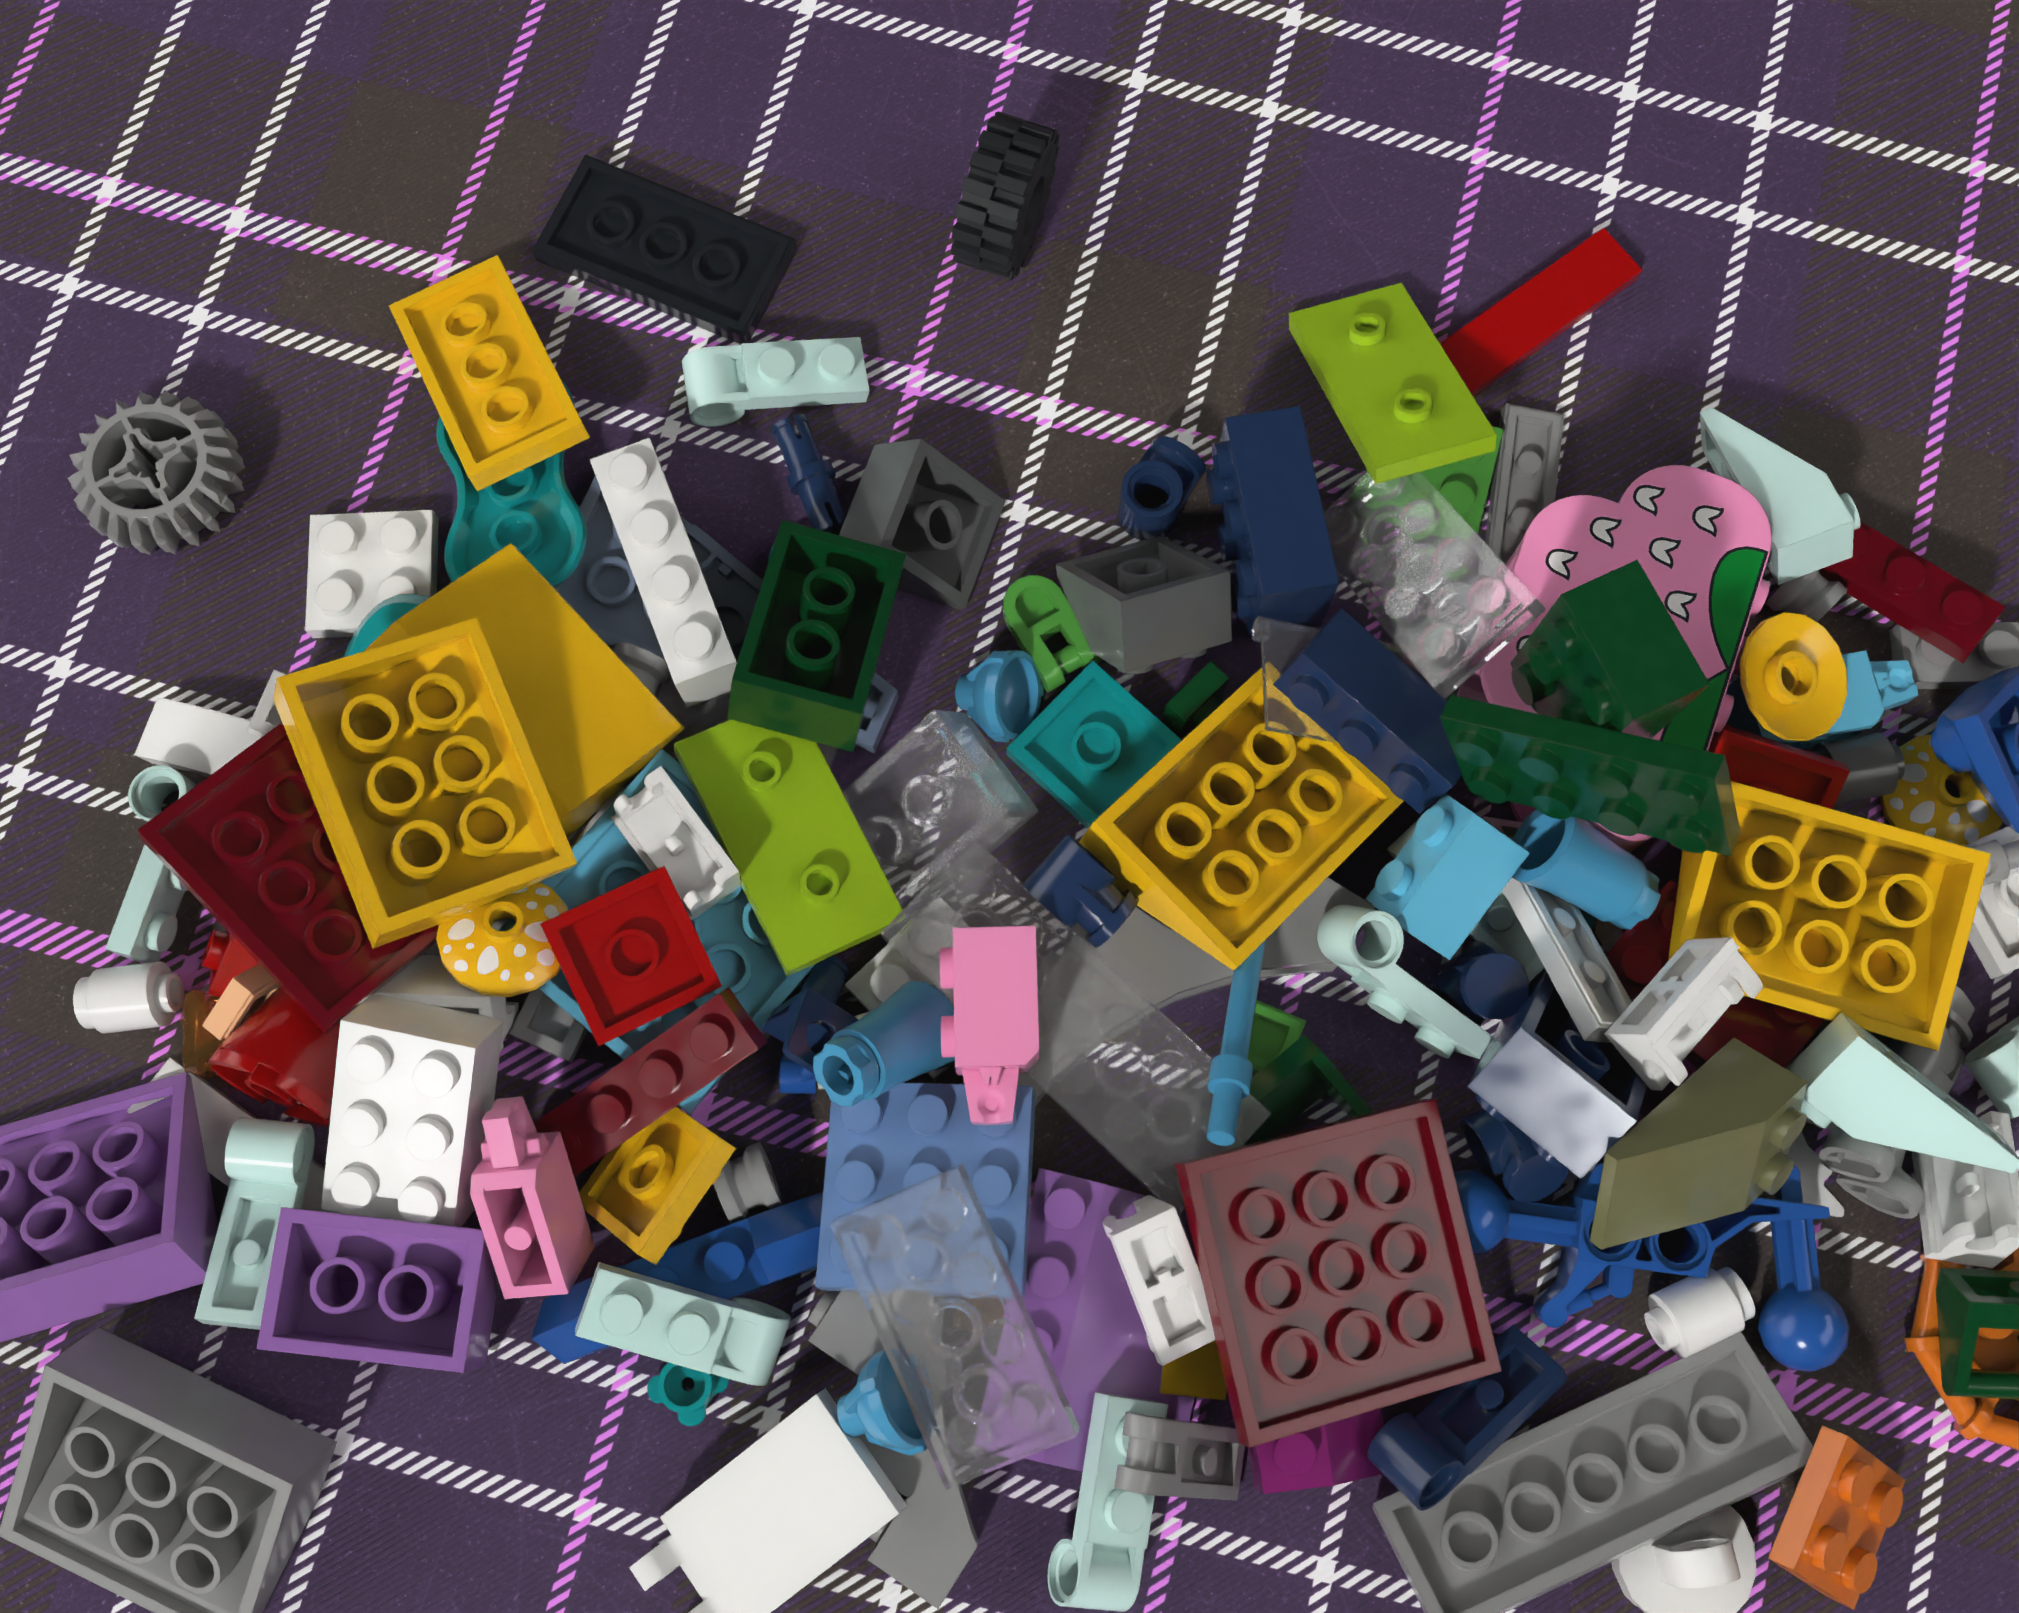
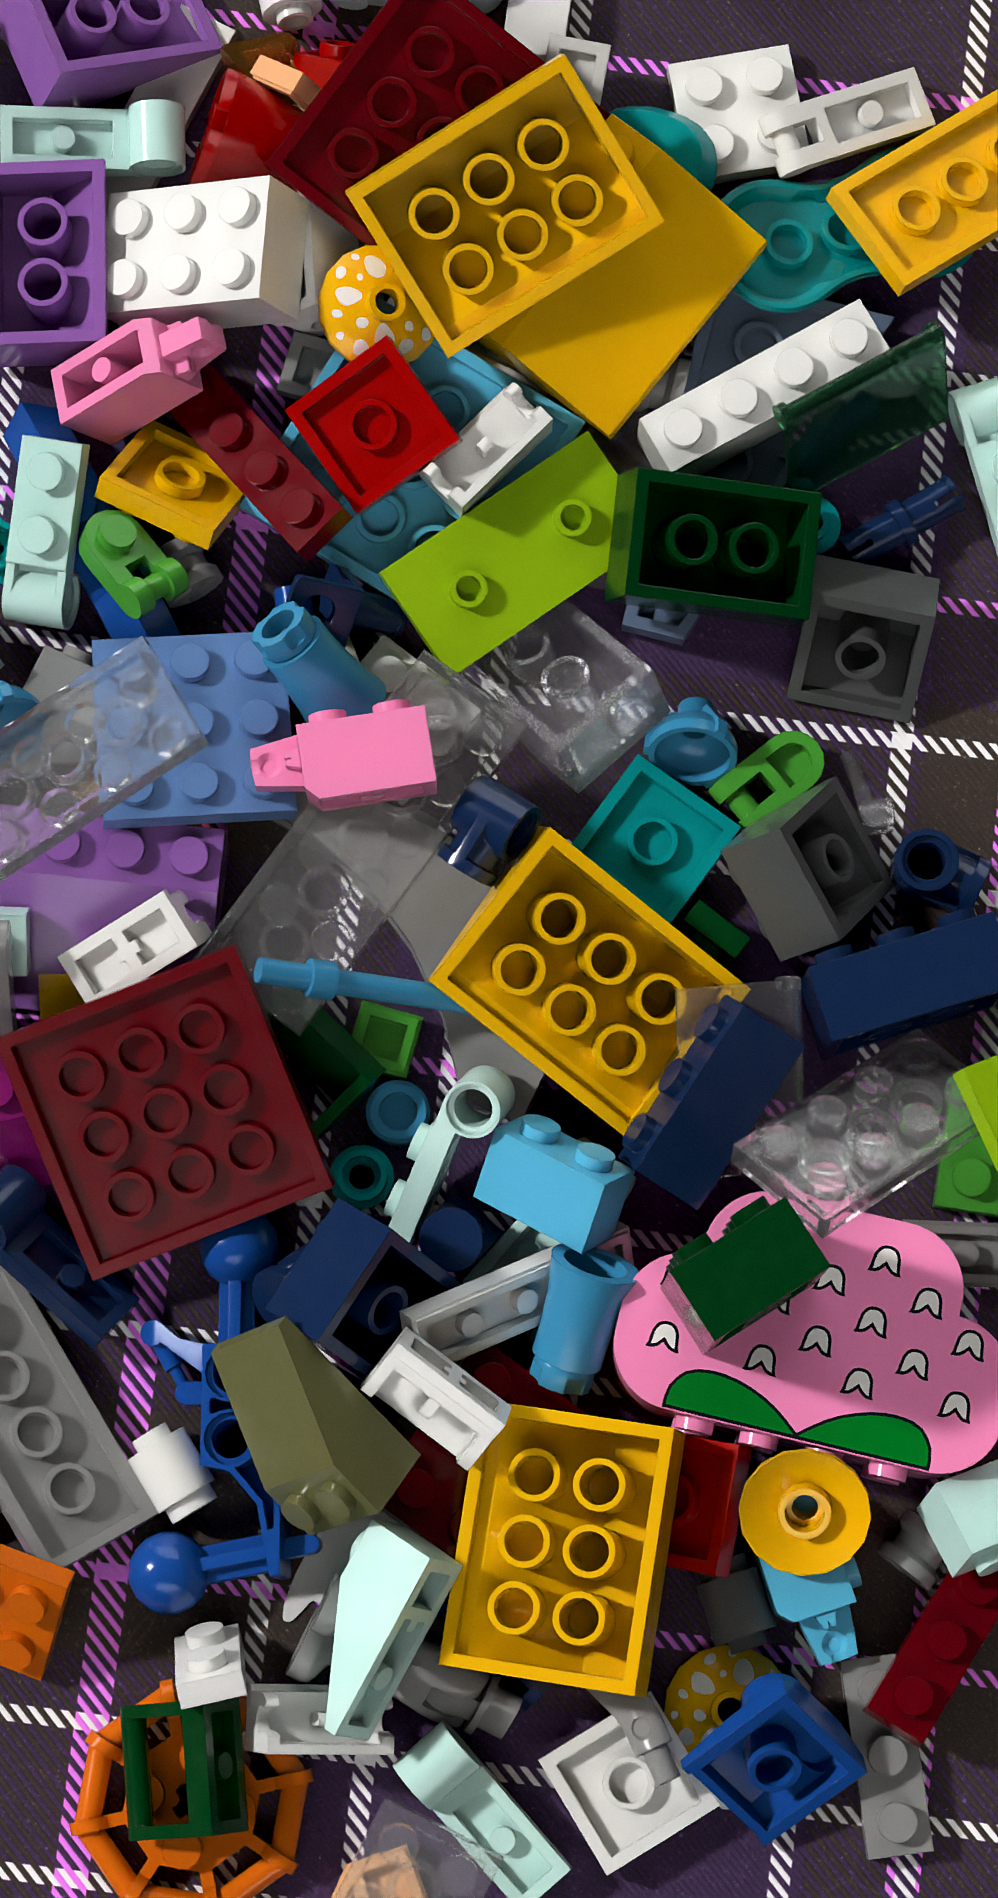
camera: 80 degrees right, 5 degrees up
(402, 466) = (848, 121): none -> white plate
(699, 480) = (866, 411): none -> clear green piece
(712, 1246) = (116, 546): none -> bright green plate
(1091, 539) = (875, 814): none -> clear hand
(1340, 1032) = (397, 1112): none -> dark azure tile
(1411, 1060) = (368, 1157): none -> teal plate
(1594, 775) = (640, 1269): dark green plate -> none
(1916, 1293) = (209, 1664): none -> white plate

